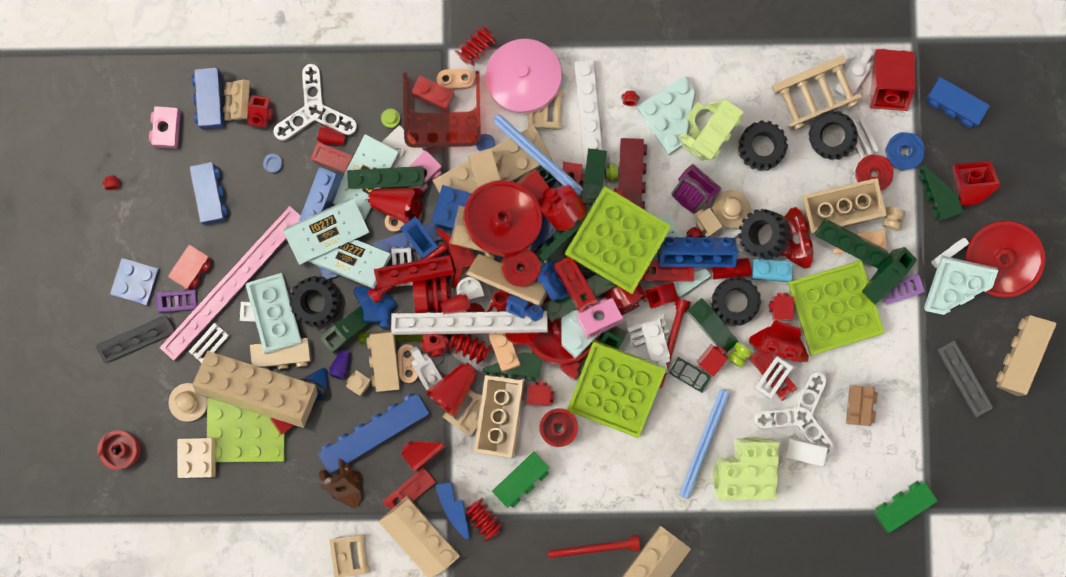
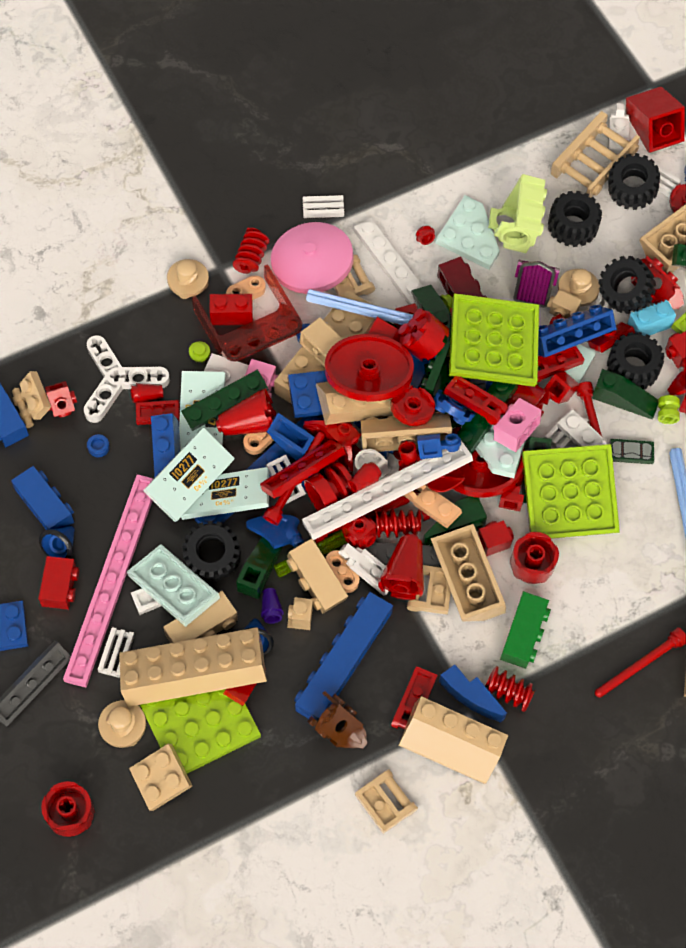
camera: 35 degrees left, 20 degrees down
(159, 302) = (54, 618): medium lavender slope -> none
(205, 234) = (57, 542): none -> blue hat
(413, 44) = (187, 278): none -> tan plate
(419, 453) = (405, 650): red slope -> none
(545, 22) = (322, 204): none -> white tile
(712, 359) = (646, 423): red brick -> none

